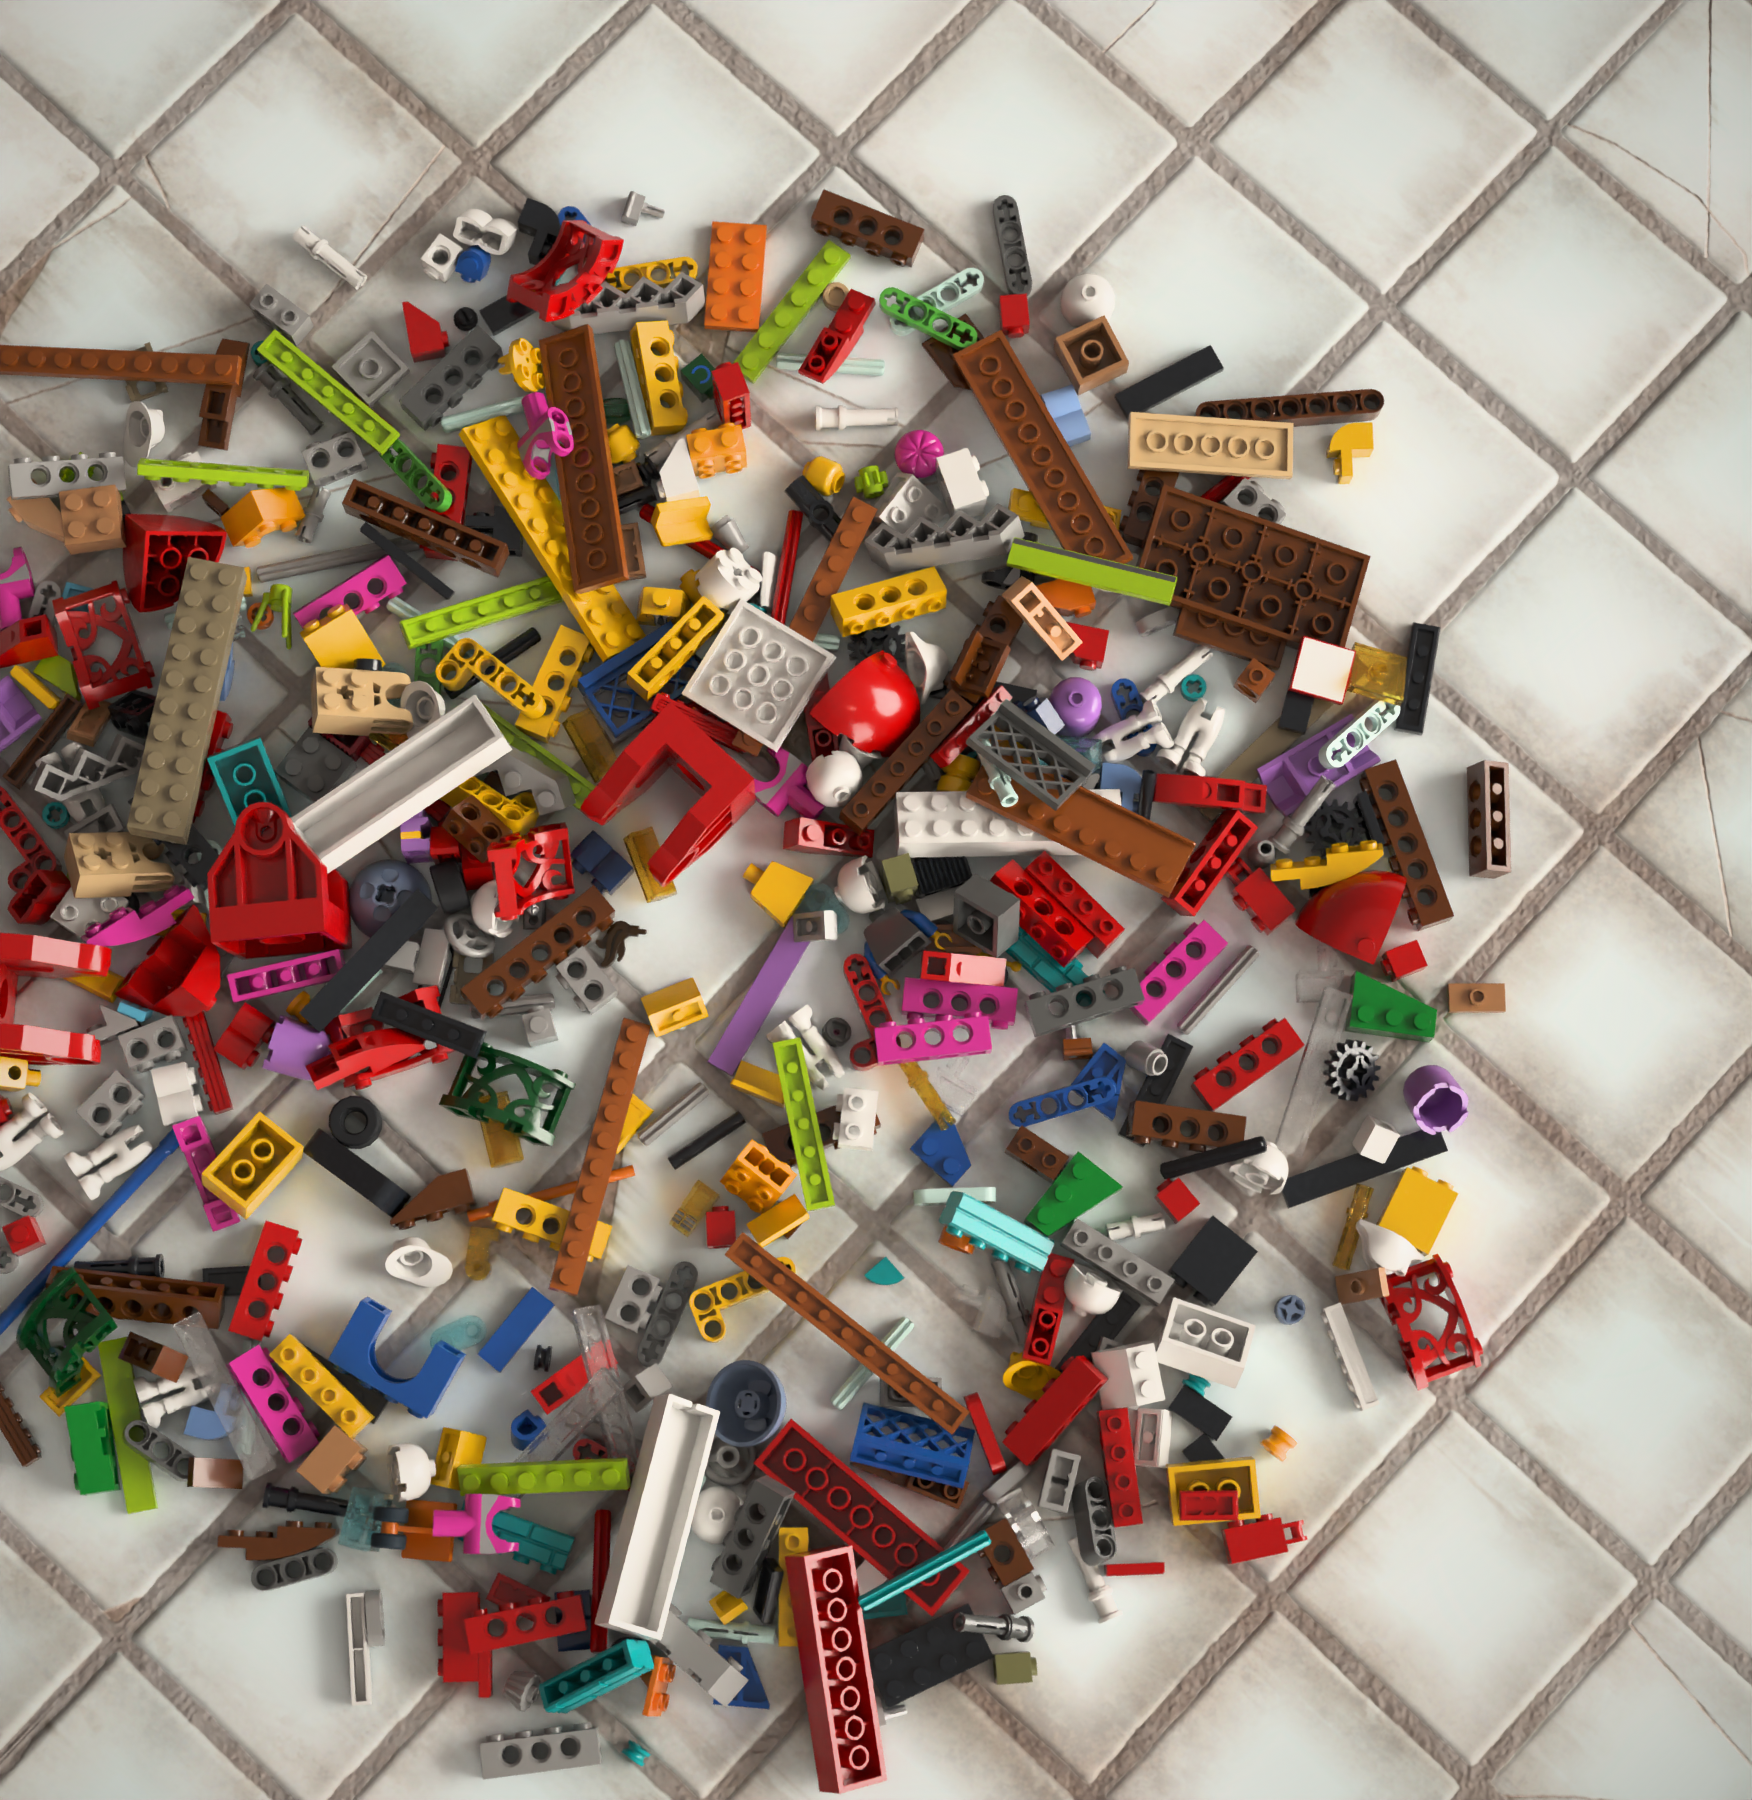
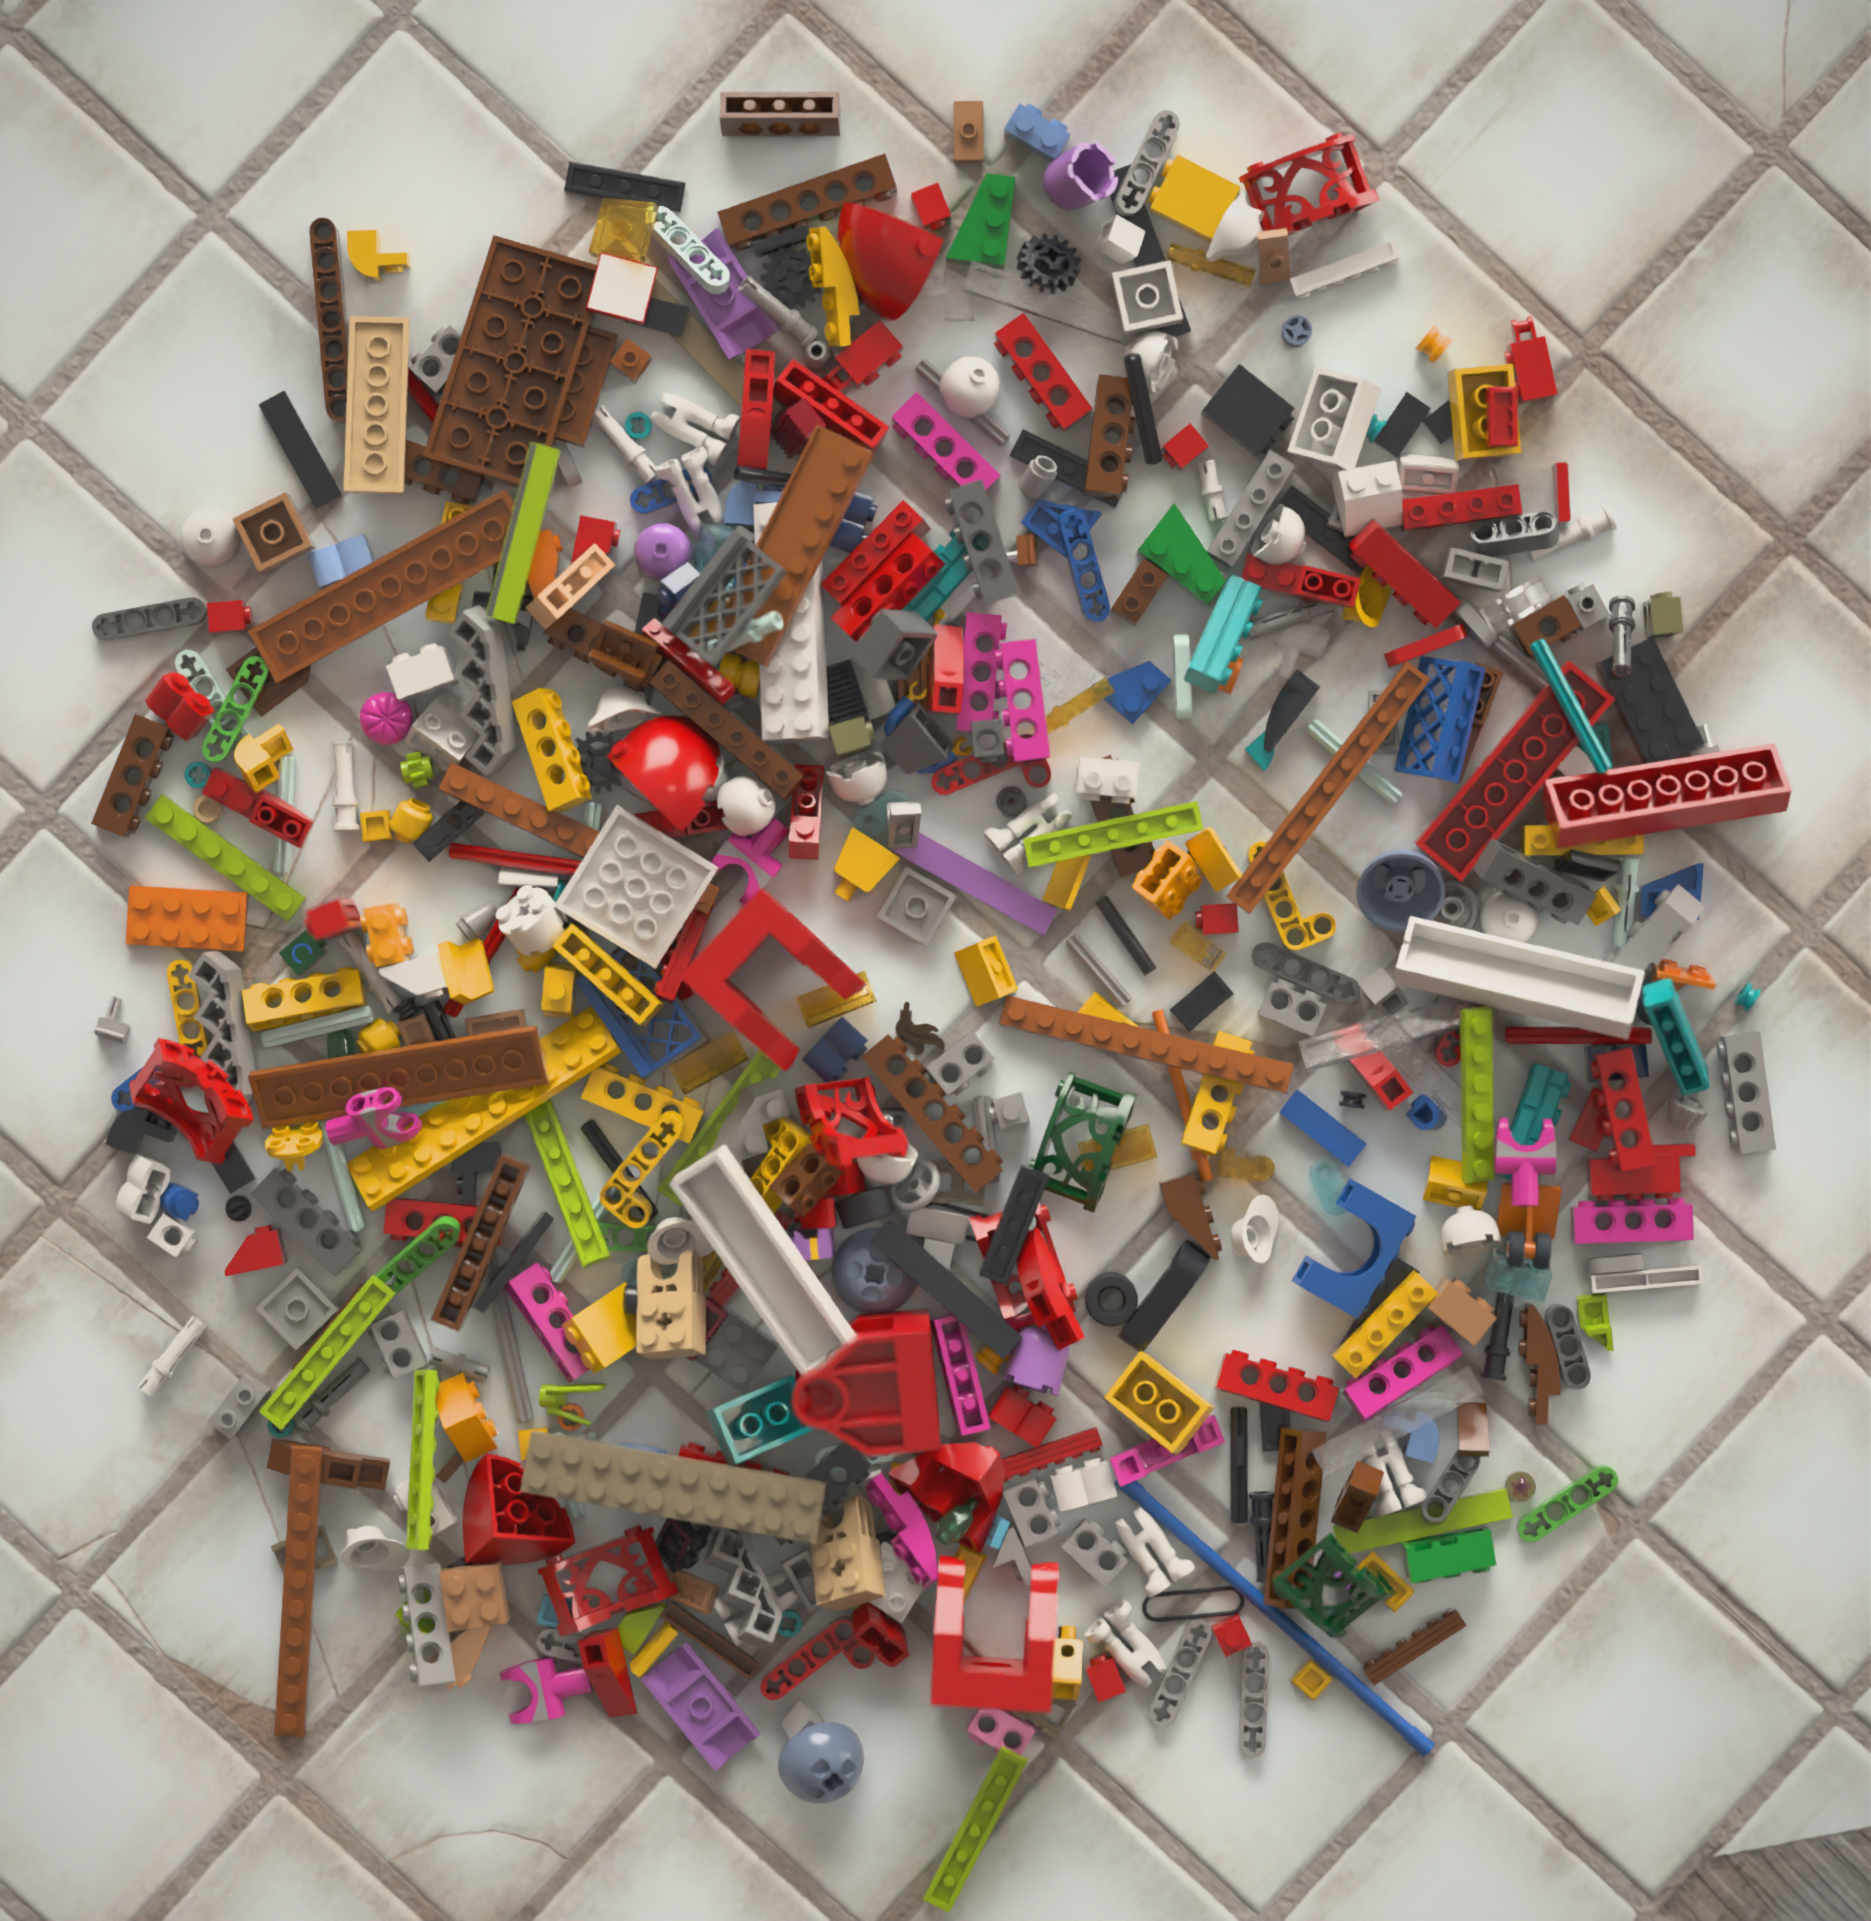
camera: 85 degrees left, 10 degrees up
(69, 1200) = (1193, 1616): none -> black piece
(135, 1571) = (1564, 1499): none -> bright green beam
(143, 968) = (956, 1522): none -> plant
(158, 1522) = (1520, 1486): none -> olive tile
(191, 1245) = (1239, 1464): none -> black axle
(321, 1598) = (1594, 1318): none -> lime slope
(406, 1680) = (1677, 1229): none -> dark pink brick
(641, 1213) = (1201, 1001): none -> black tile
(737, 941) = (916, 906): none -> light grey plate
(819, 445) = (376, 826): none -> yellow tile
(861, 282) = (191, 780): none -> teal bush
(884, 336) = (258, 756): none -> yellow brick
(904, 995) = (987, 726): none -> dark grey brick
(926, 1298) = (1288, 706): none -> black piece
(931, 269) = (179, 705): none -> red brick
(1104, 883) = (851, 529): none -> dark blue brick
(1195, 827) = (795, 428): none -> dark red brick
(1232, 995) = (970, 386): none -> white cylinder
(1320, 1161) = (1147, 297): none -> white brick
(1448, 1168) = (1145, 162): none -> light grey beam
(1476, 1059) = (1036, 132): none -> medium blue brick

